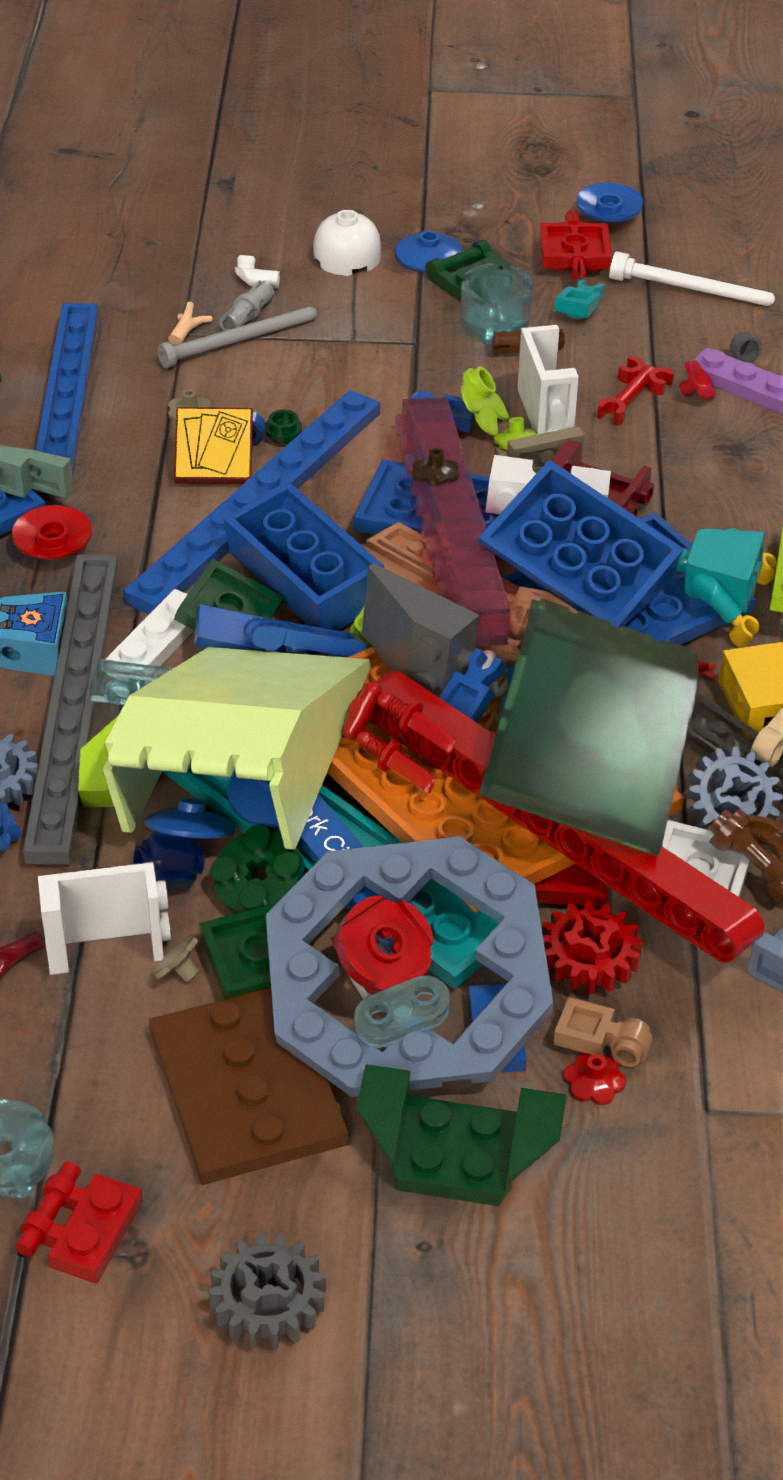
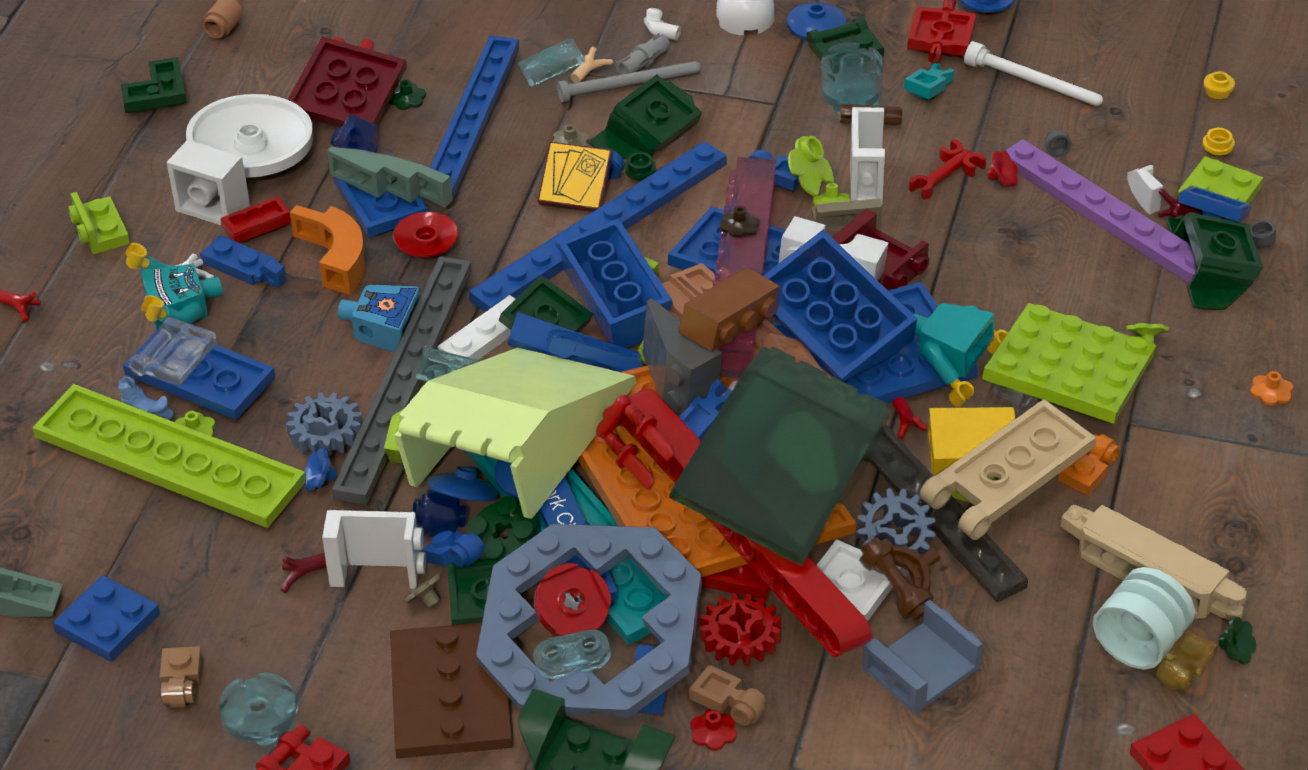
camera: 15 degrees right, 0 degrees up
(142, 325) = (551, 62): none -> clear light blue plate
(197, 900) = (454, 548): none -> blue plate
(278, 372) = (648, 119): none -> dark green piece
(473, 563) = (729, 309): none -> dark orange brick

